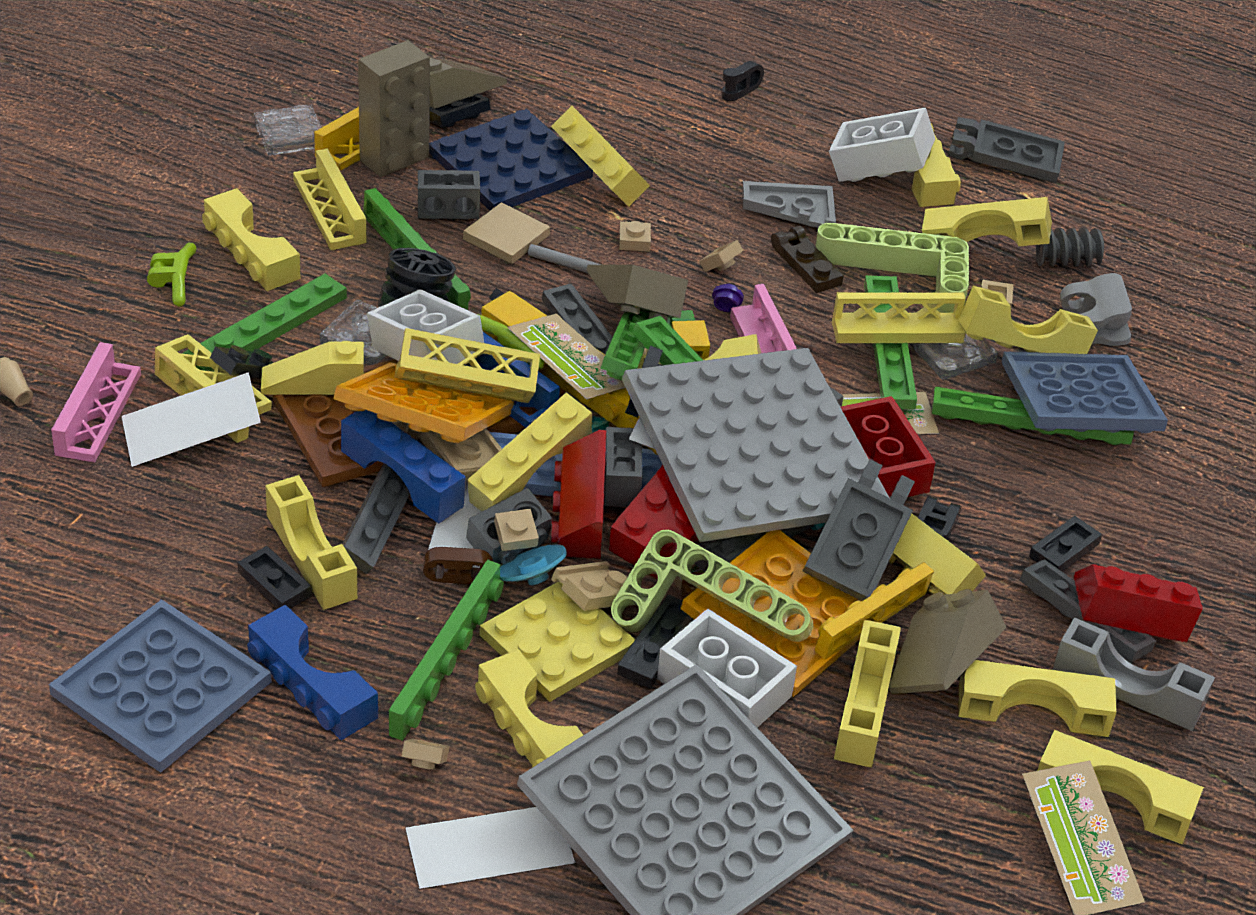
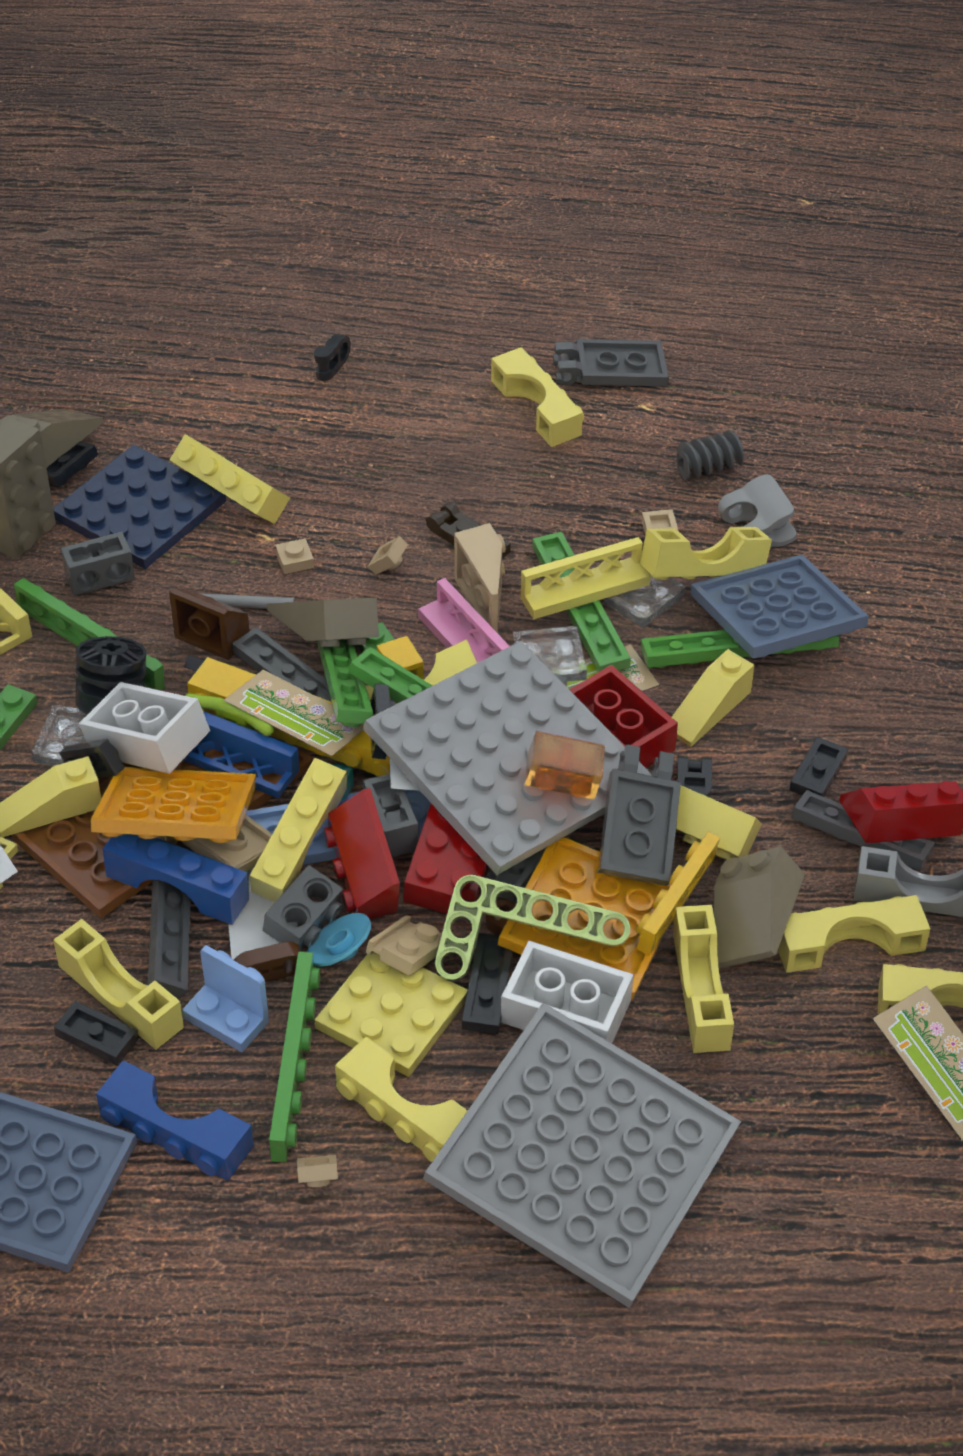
camera: 15 degrees left, 5 degrees up
(377, 347) = (101, 754): none -> black plate
(408, 590) = (230, 1002): none -> light blue bracket
(463, 377) = (207, 766): light yellow fence -> none
(485, 847) = (409, 1246): white sticker -> none
(506, 233) = (158, 578): tan tile -> none
(516, 529) = (315, 912): tan plate -> none
(526, 266) = (207, 622): none -> reddish brown slope
(726, 297) = (410, 598): dark purple plate -> none
(793, 202) = (435, 476): light grey wing -> none
(800, 459) = (565, 765): none -> clear orange brick
(803, 288) = (480, 570): none -> tan slope
(847, 374) = (557, 649): none -> clear plate
(882, 145) = (498, 395): white brick -> none
(899, 252) = (559, 503): yellowish green beam -> none
(985, 454) = (713, 696): none -> light yellow slope
(1022, 220) = (594, 463): light yellow arch -> none

